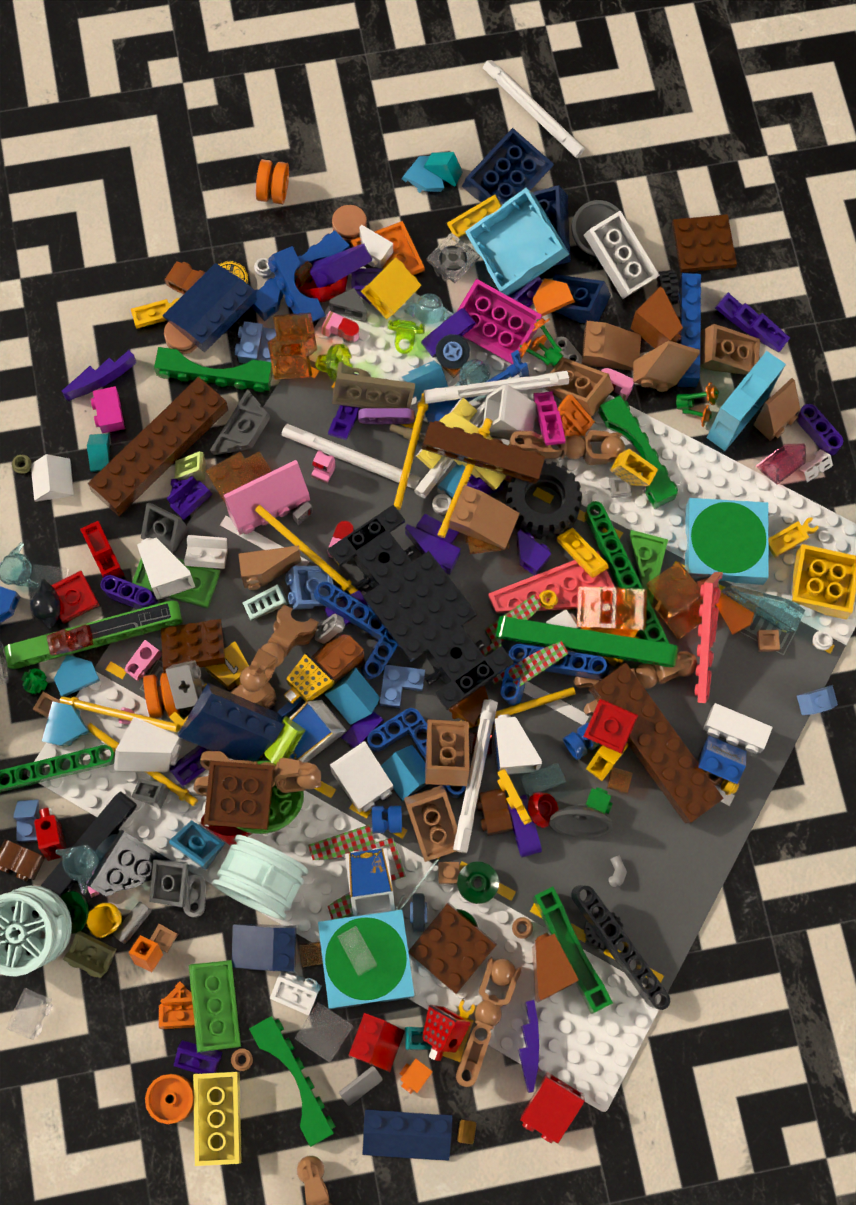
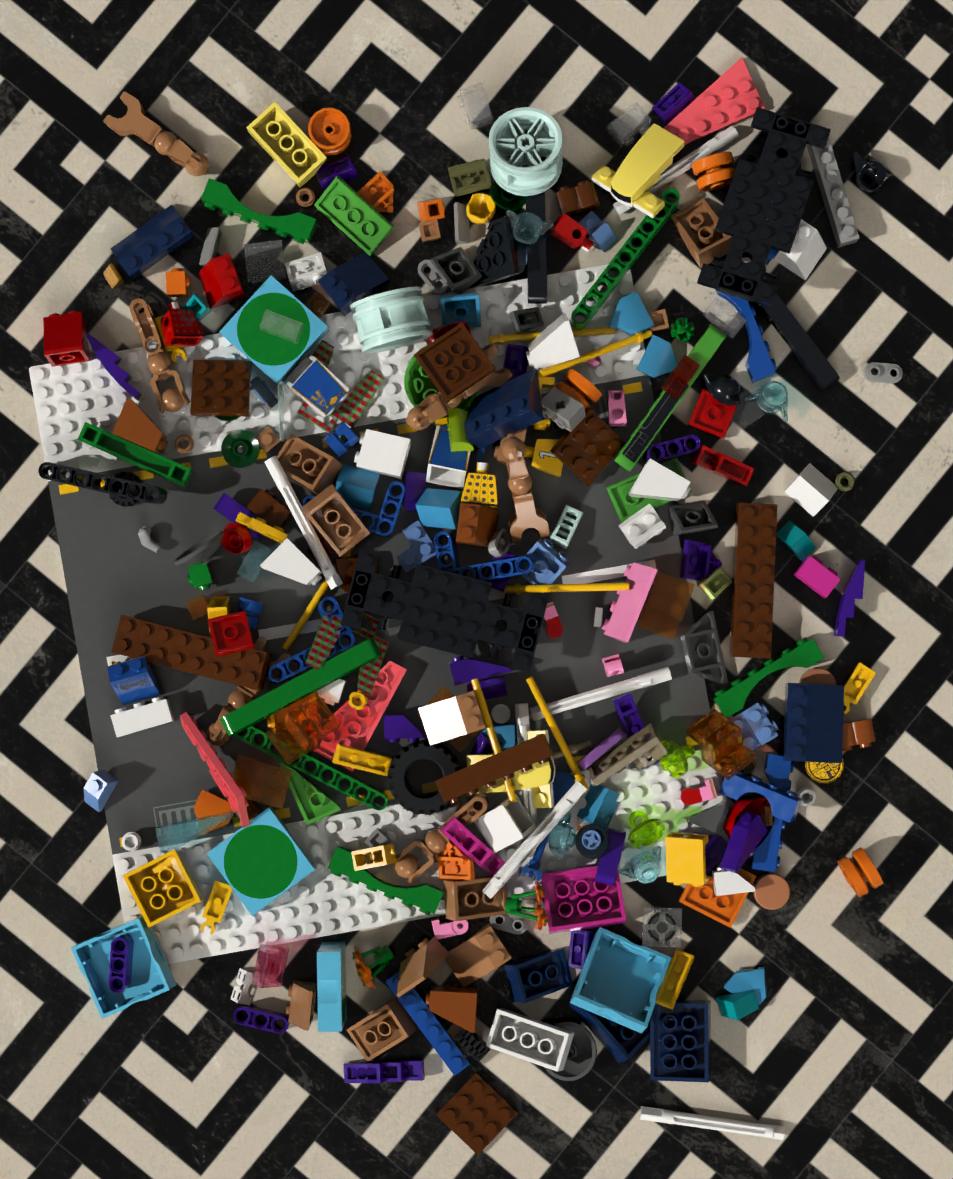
camera: 150 degrees right, 15 degrees up
(264, 566) = (589, 546): medium nougat slope -> none
(552, 296) = (557, 958): orange slope -> none
(768, 640) = (171, 806): medium nougat plate -> none

